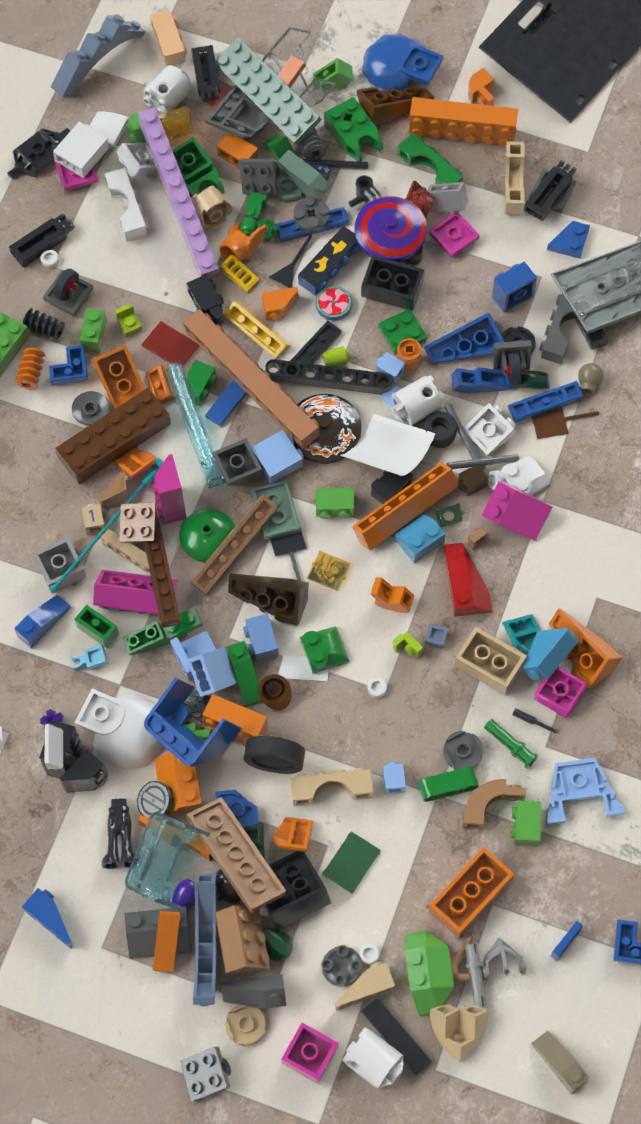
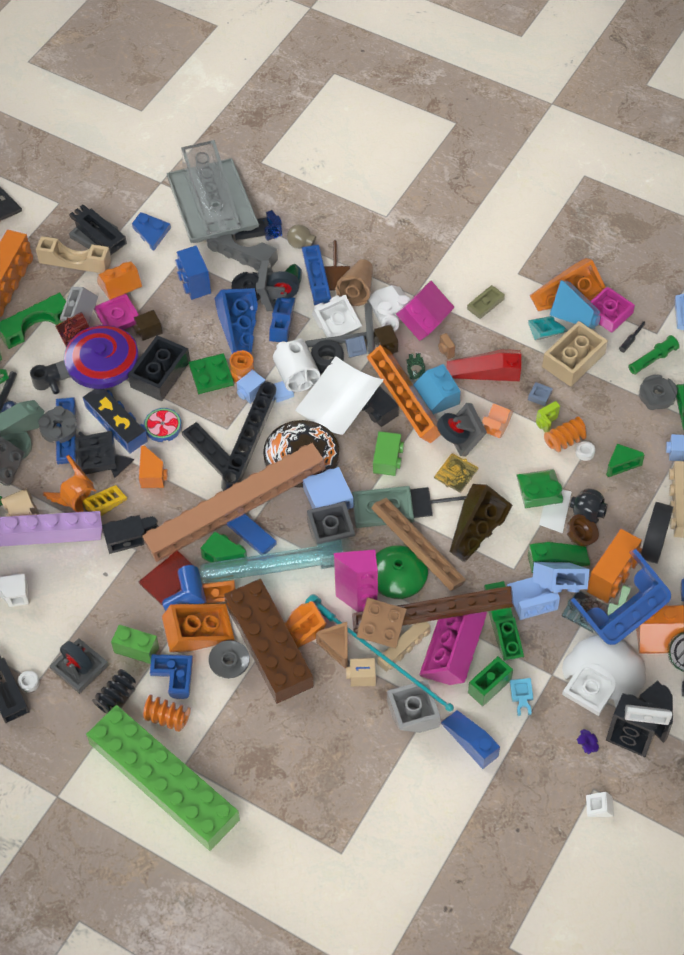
camera: 80 degrees left, 10 degrees down
(128, 320) = (130, 611): lime bracket -> none
(150, 362) = (191, 588): none -> blue brick
(254, 208) = (37, 477): green piece -> none
(256, 329) = (175, 495): yellow slope -> none
(261, 636) = (519, 534): medium blue brick -> none
(271, 226) = (61, 466): green gear -> none
(289, 254) = (96, 452): none -> black slope
(306, 696) = (590, 504): none -> black plant
(336, 357) = (226, 429): lime brick -> none
(367, 559) = (462, 429): none -> plate
(368, 721) = (624, 460): none -> green slope
(386, 665) = (565, 434): none -> orange piece
(445, 263) = (147, 325): none -> dark brown brick
(459, 451) = (355, 346): none -> sand blue plate
(491, 224) = (119, 280): none -> orange slope
(540, 439) = (356, 283): none -> medium nougat cone
(545, 568) = (485, 302): none -> olive plate
(602, 350) = (275, 226): none -> clear blue bracket

